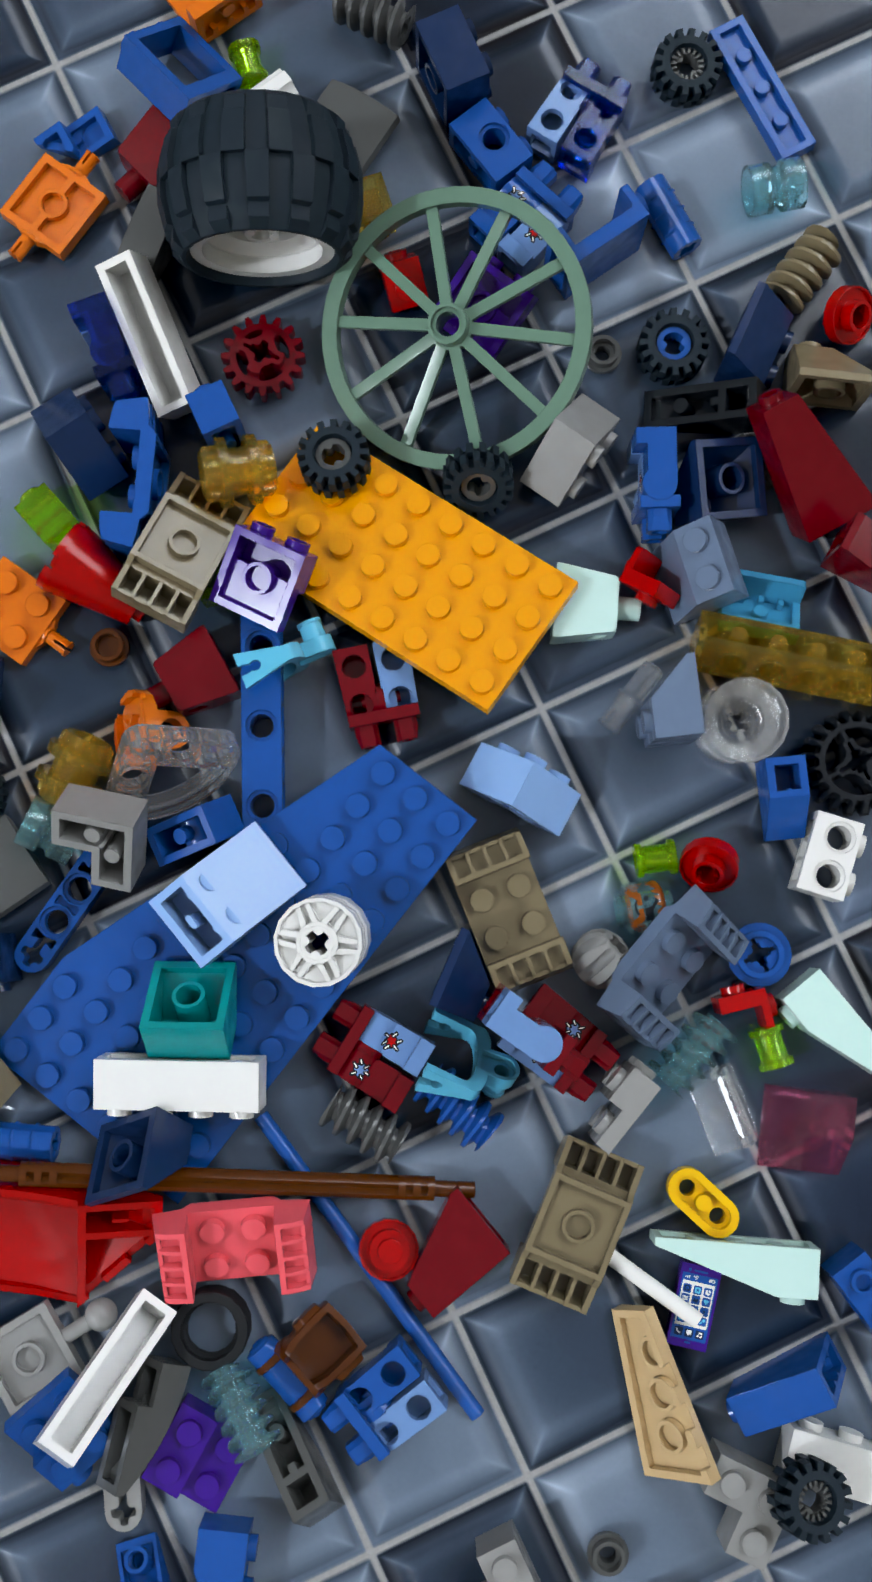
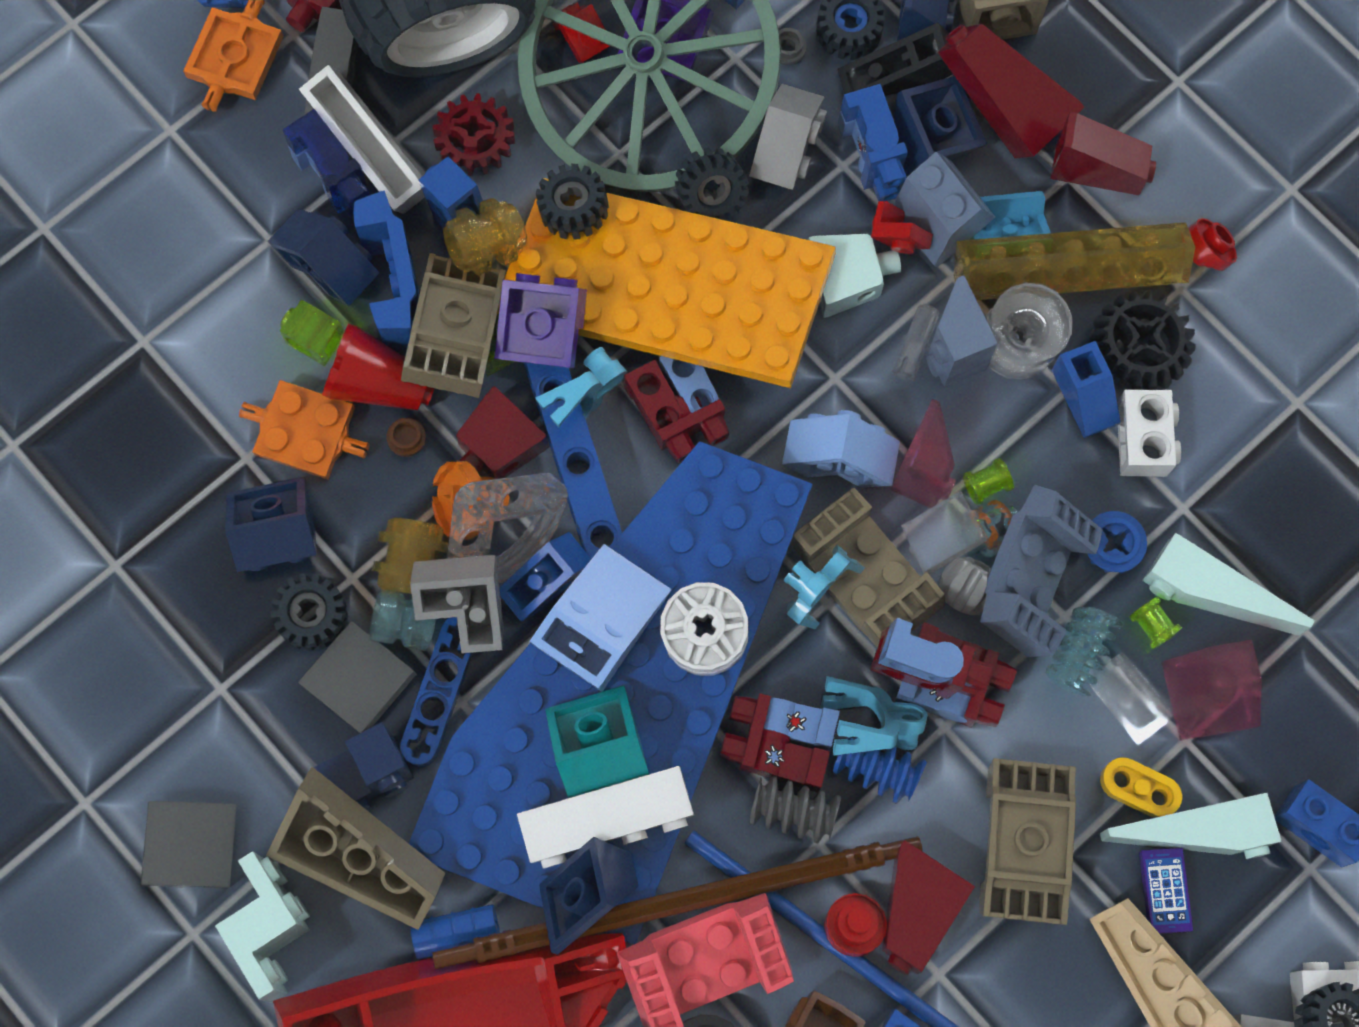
camera: 20 degrees left, 10 degrees down
(439, 924) = (814, 585): none -> medium azure piece
(462, 981) = (844, 641): dark blue slope -> none
(593, 899) = (944, 533): none -> clear piece
(601, 824) = (928, 462): none -> clear pink slope
(630, 1092) = (1033, 705): light grey plate -> none
(655, 1289) = (1124, 884): white bar -> none
(709, 864) = (1042, 466): red plate -> none
(737, 998) = (1109, 586): red bracket -> none
(788, 1387) = (1280, 937): blue slope -> none

